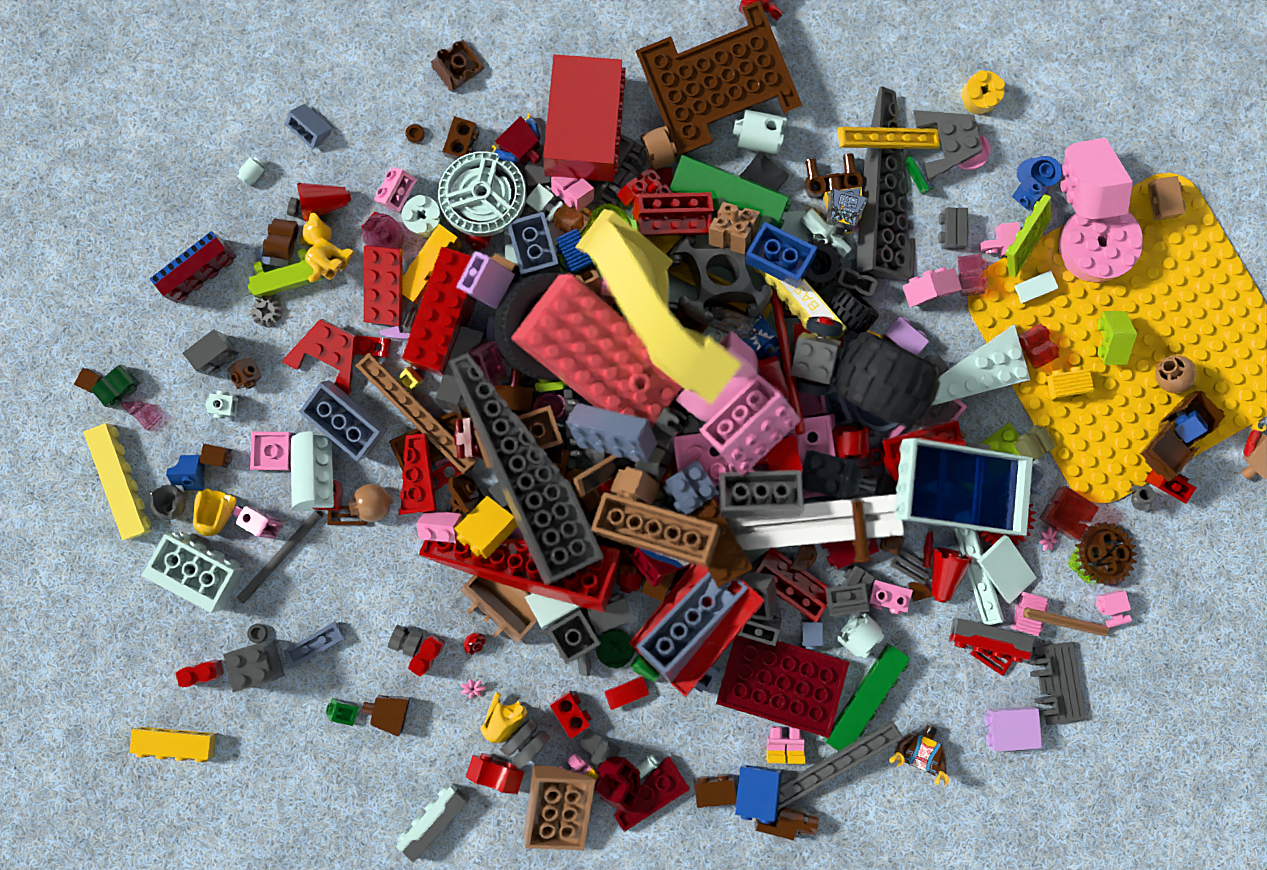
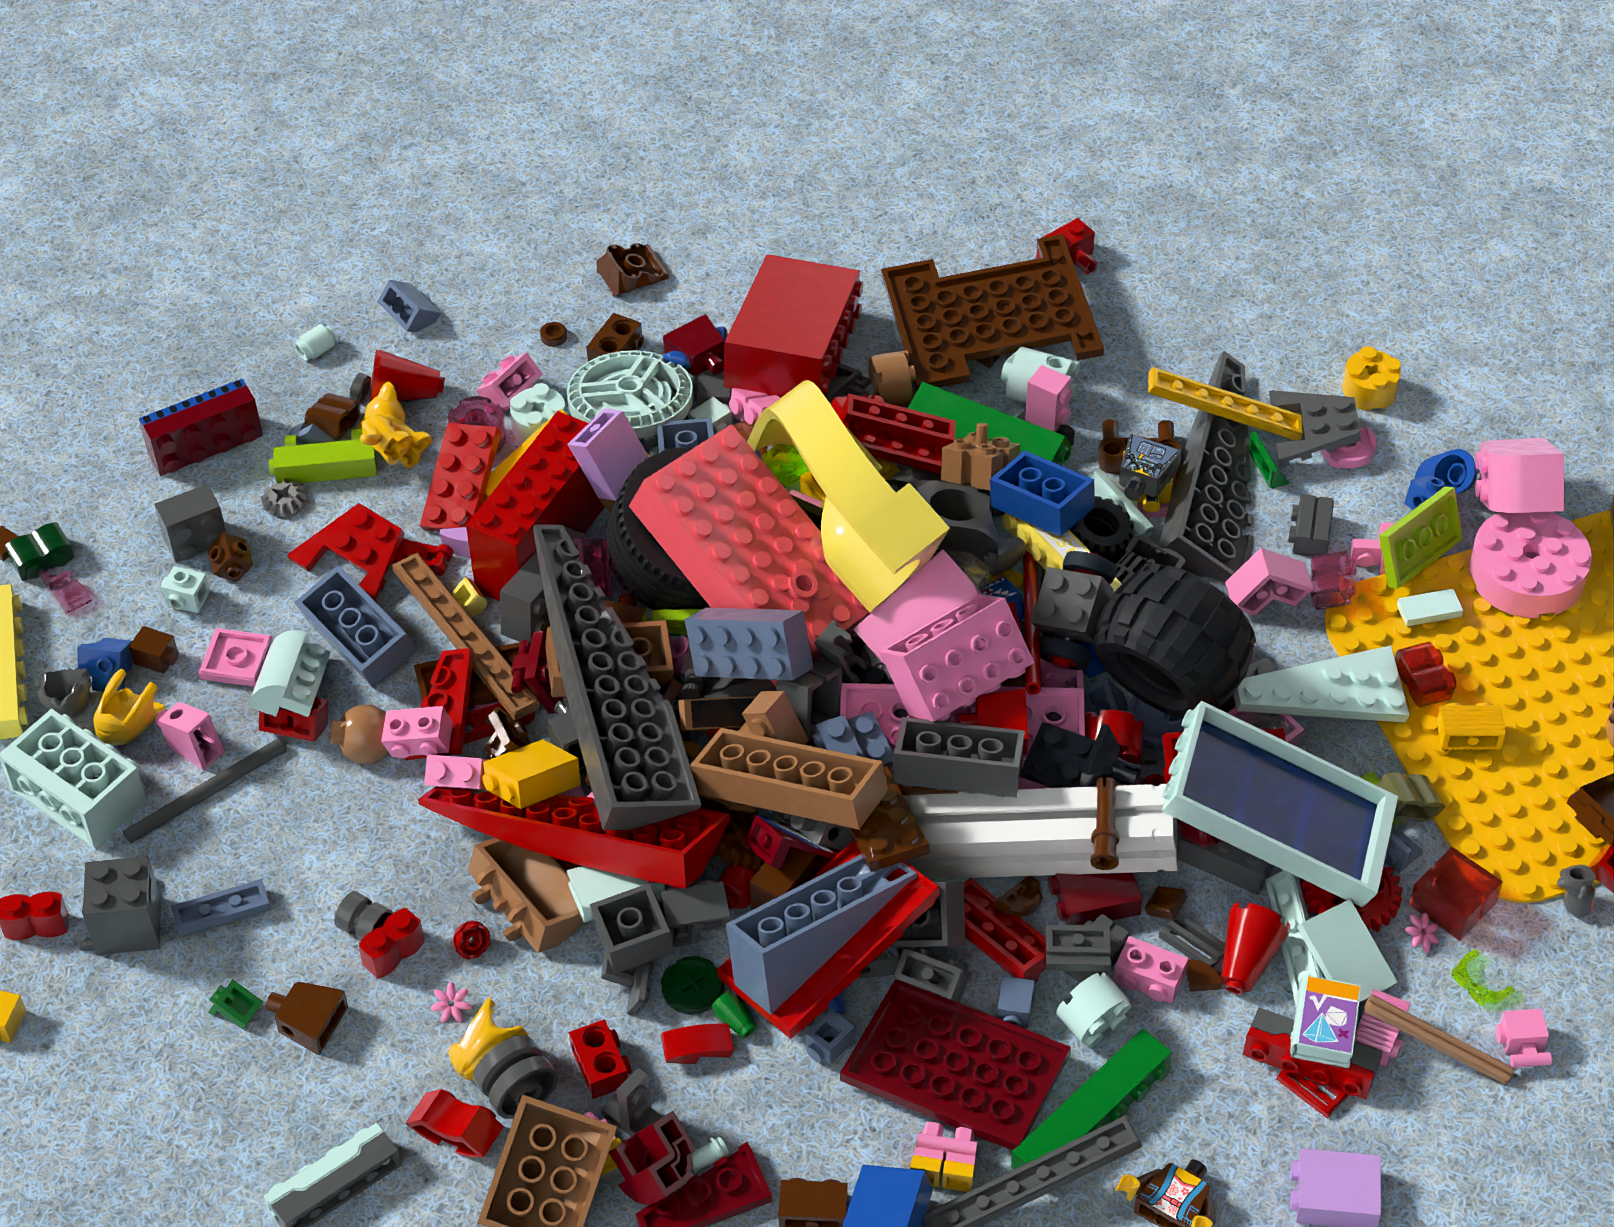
camera: 15 degrees right, 35 degrees down
(330, 515) = (321, 757): reddish brown tile -> none
(405, 505) = (417, 731): none -> bright pink brick
(772, 161) = (1048, 399): none -> bright pink brick
(928, 550) = (1221, 920): red piece -> none
(1001, 626) = (1325, 1021): none -> piece
(1061, 683) = (1424, 1141): dark grey hinge -> none
(1117, 337) = (1545, 675): lime brick -> none
(1117, 566) = (1521, 978): reddish brown gear -> none

